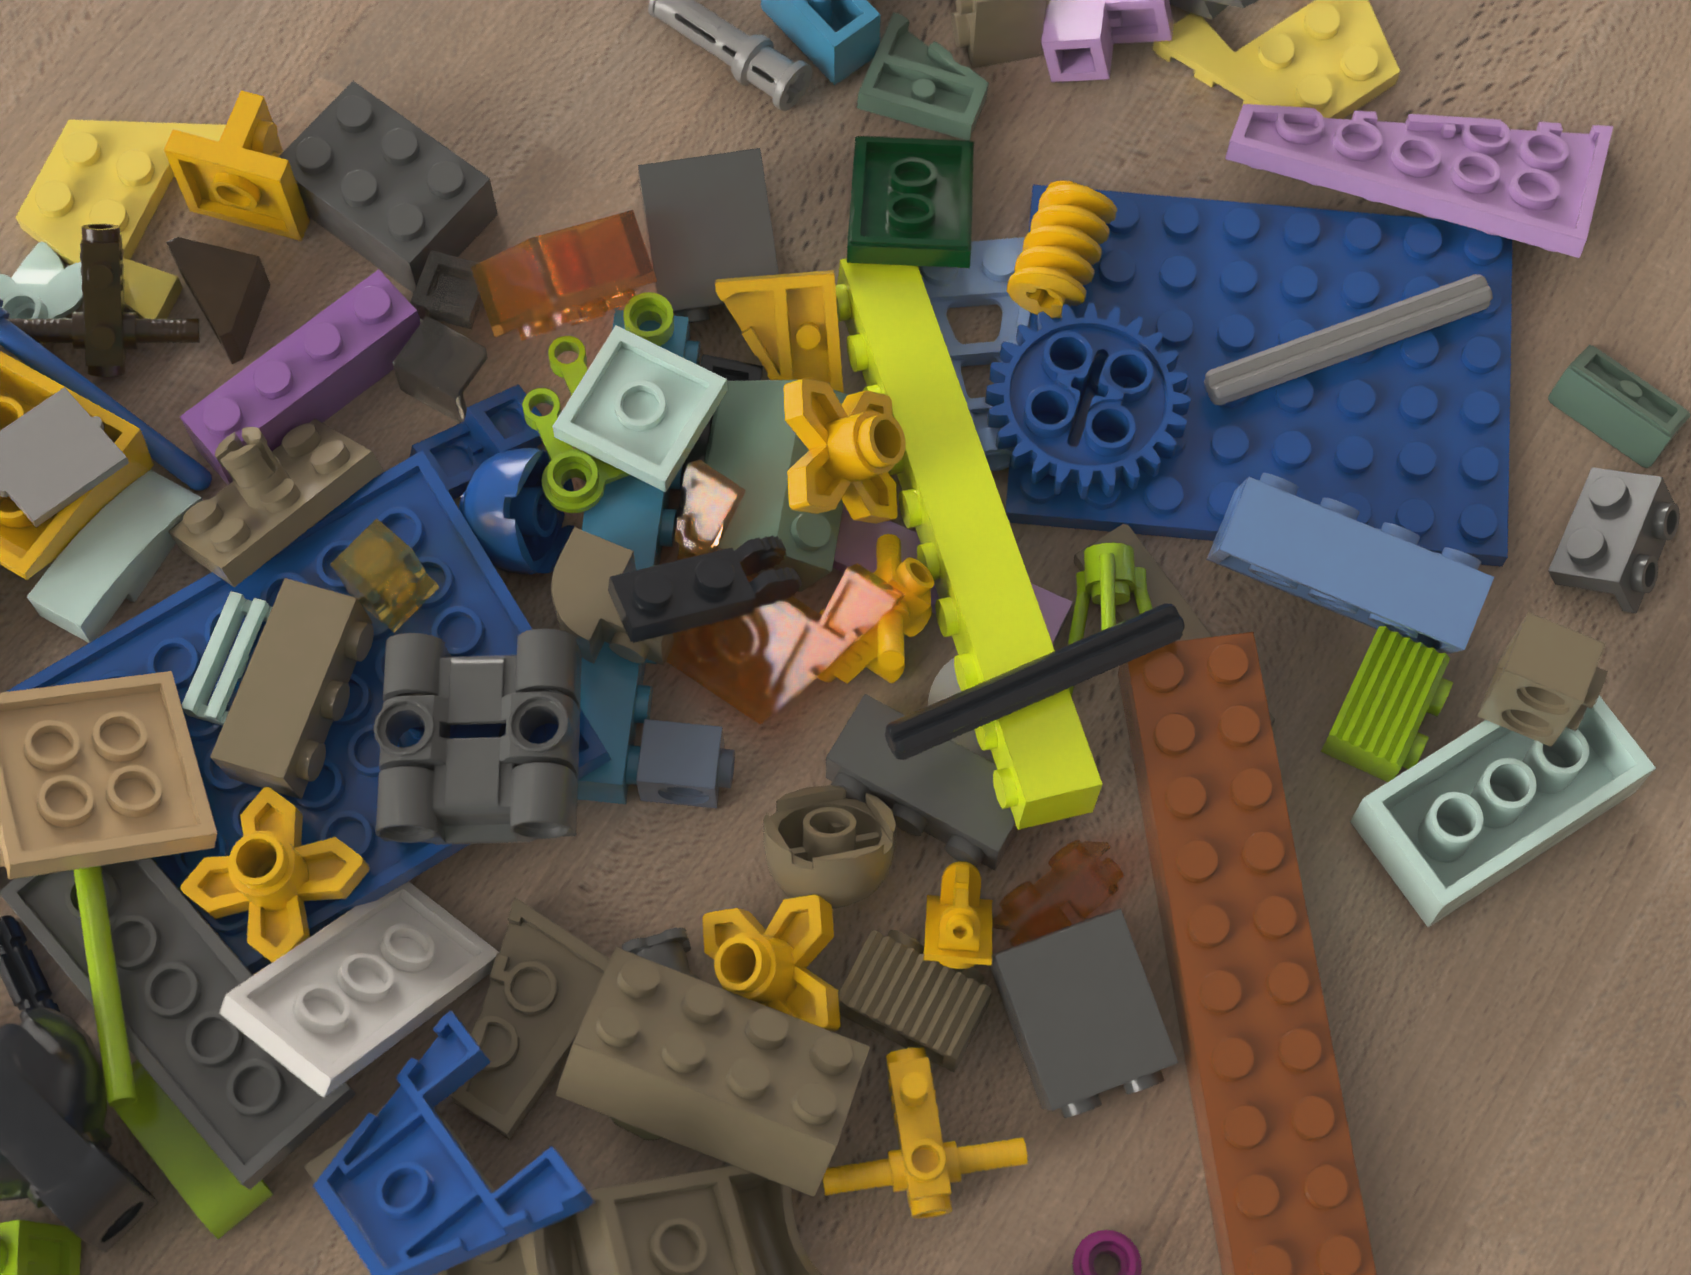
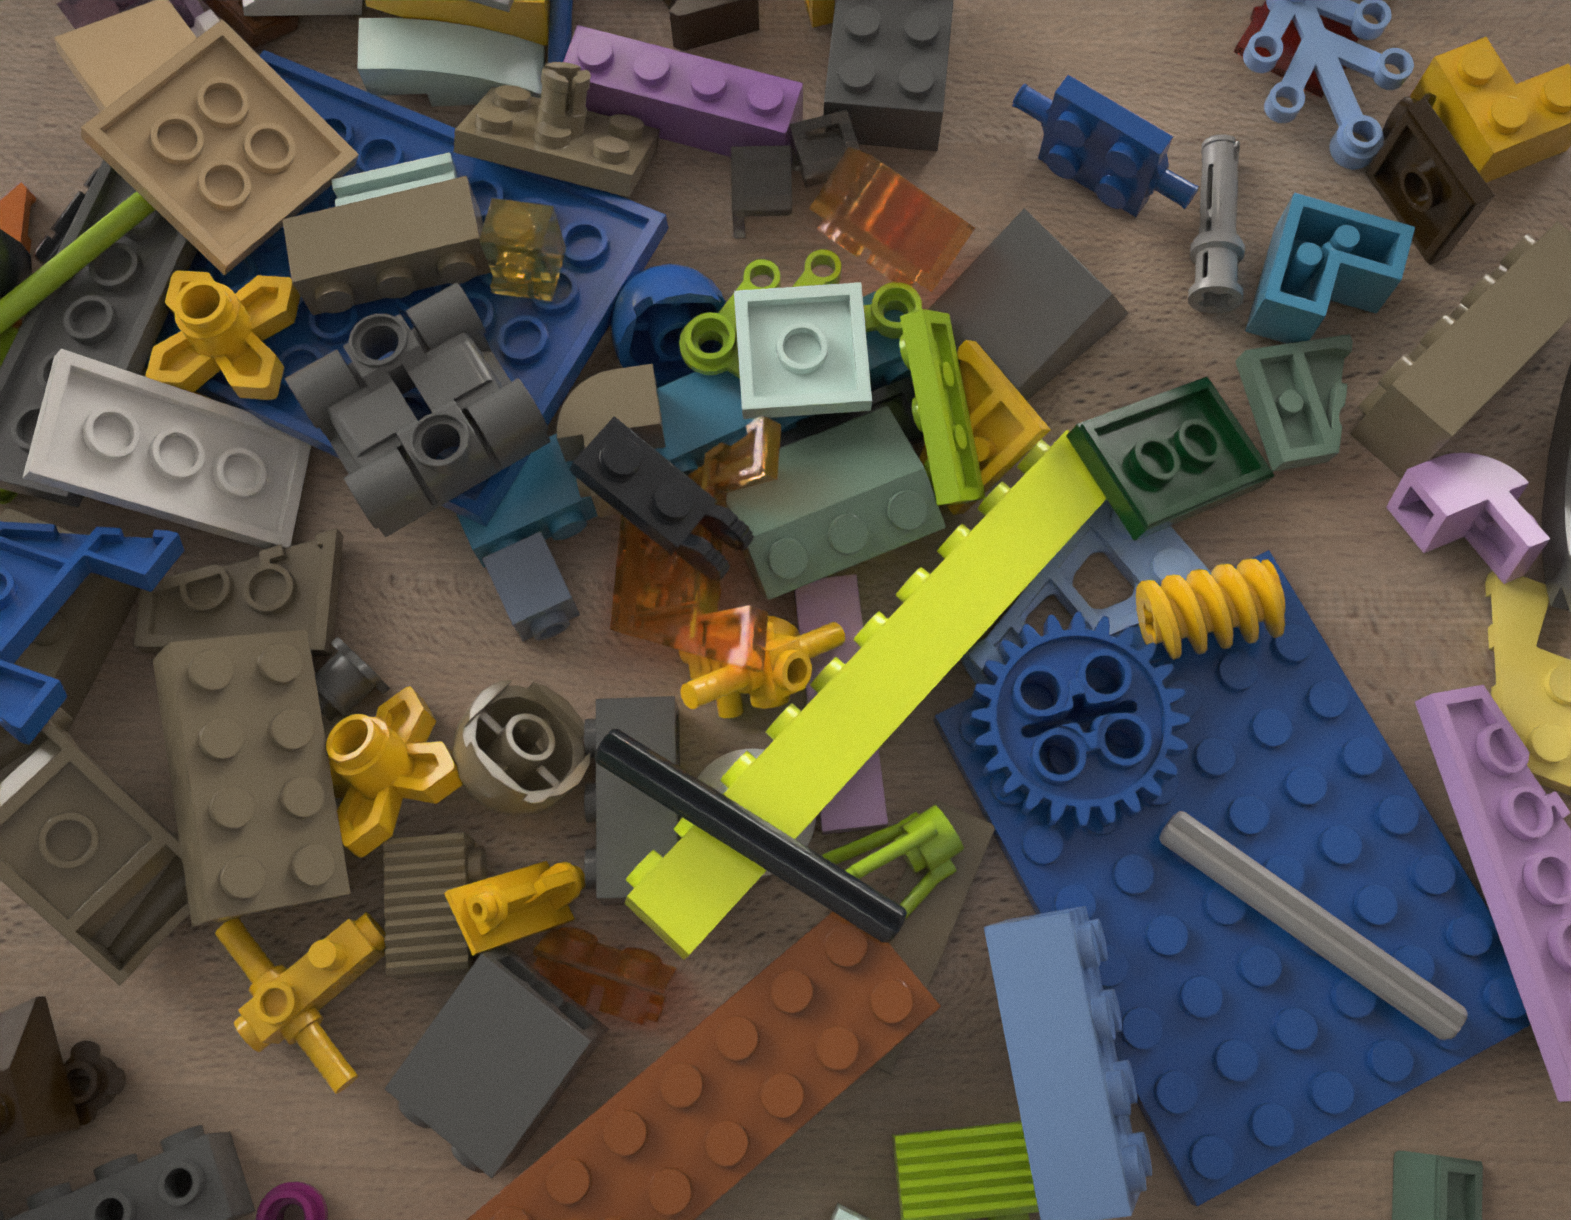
camera: 60 degrees right, 5 degrees up
(488, 429) = (717, 254): blue slope -> none
(608, 80) = (1104, 146): none -> blue plate
(758, 338) = (941, 407): none -> lime plate
(848, 451) = (870, 539): yellow plant -> none

